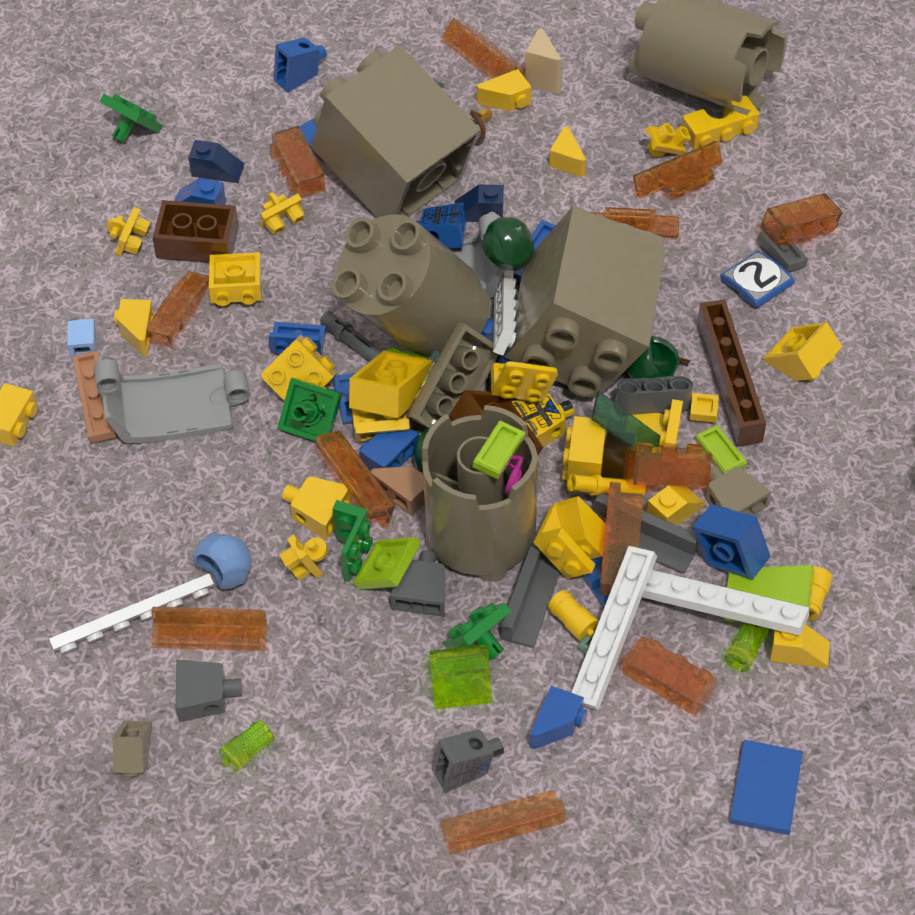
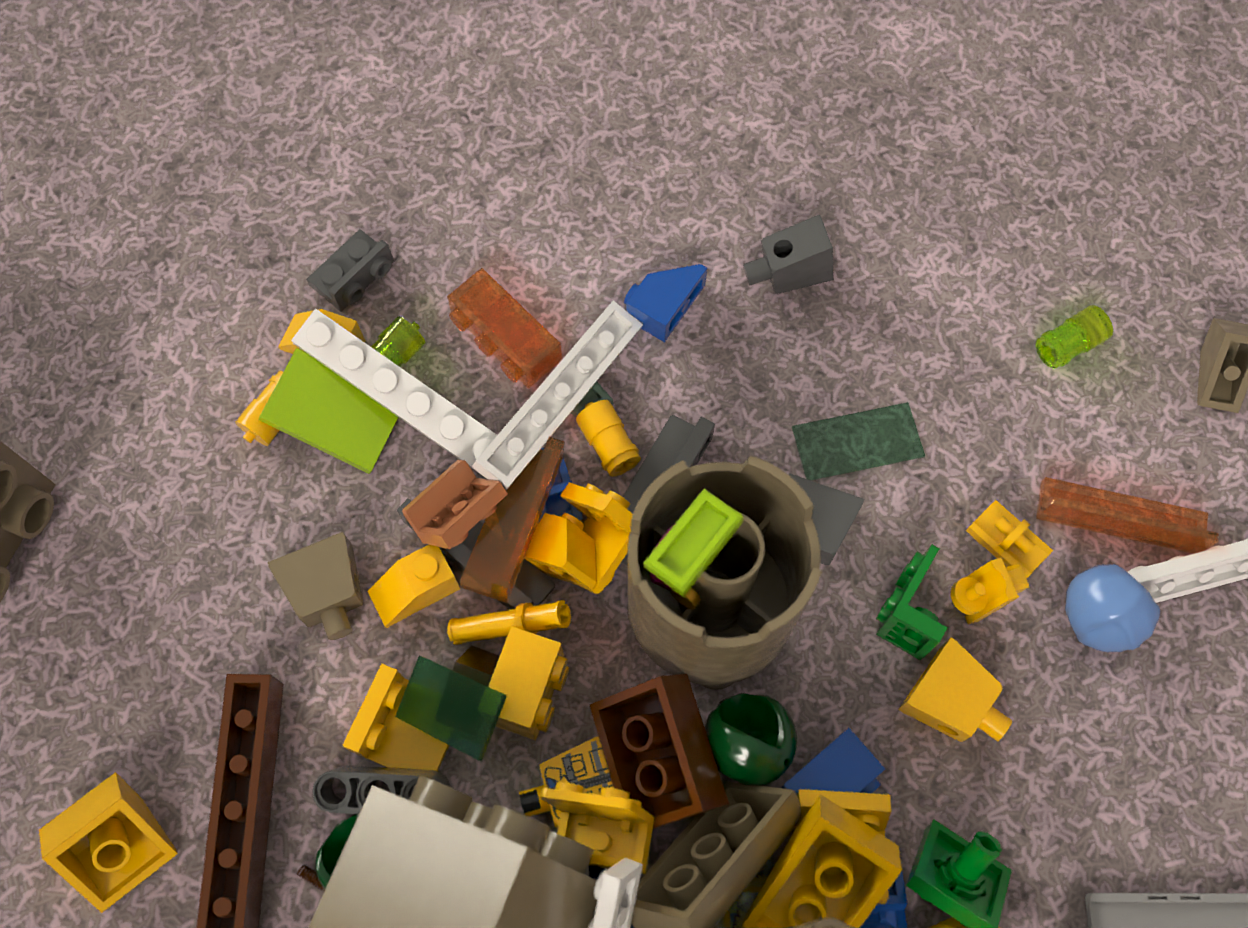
camera: 170 degrees left, 15 degrees up
(202, 689) = (1135, 425): dark grey torso -> none
(290, 594) = (1009, 538): none -> yellow hips
(356, 476) = (898, 721): clear orange panel -> none
(387, 563) = (862, 562): lime tile -> none
(395, 654) = (857, 441): none -> clear green piece
(403, 486) = (819, 701): medium nougat slope -> none
(460, 676) = (781, 379): clear neon green bracket -> none
(479, 629) = (749, 419): green plate -> none
(503, 821) = (758, 191): clear orange panel -> none
(660, 530) = (453, 506): none -> nougat bracket
(667, 465) = (406, 633): clear orange brick -> none
(704, 407) = (307, 760): yellow plate -> none
(723, 451) = (311, 680): lime tile -> none
(731, 541) = (355, 479): blue brick -> none
(766, 787) = (430, 181): blue tile -> none
(798, 703) = (351, 270): none -> dark grey bracket

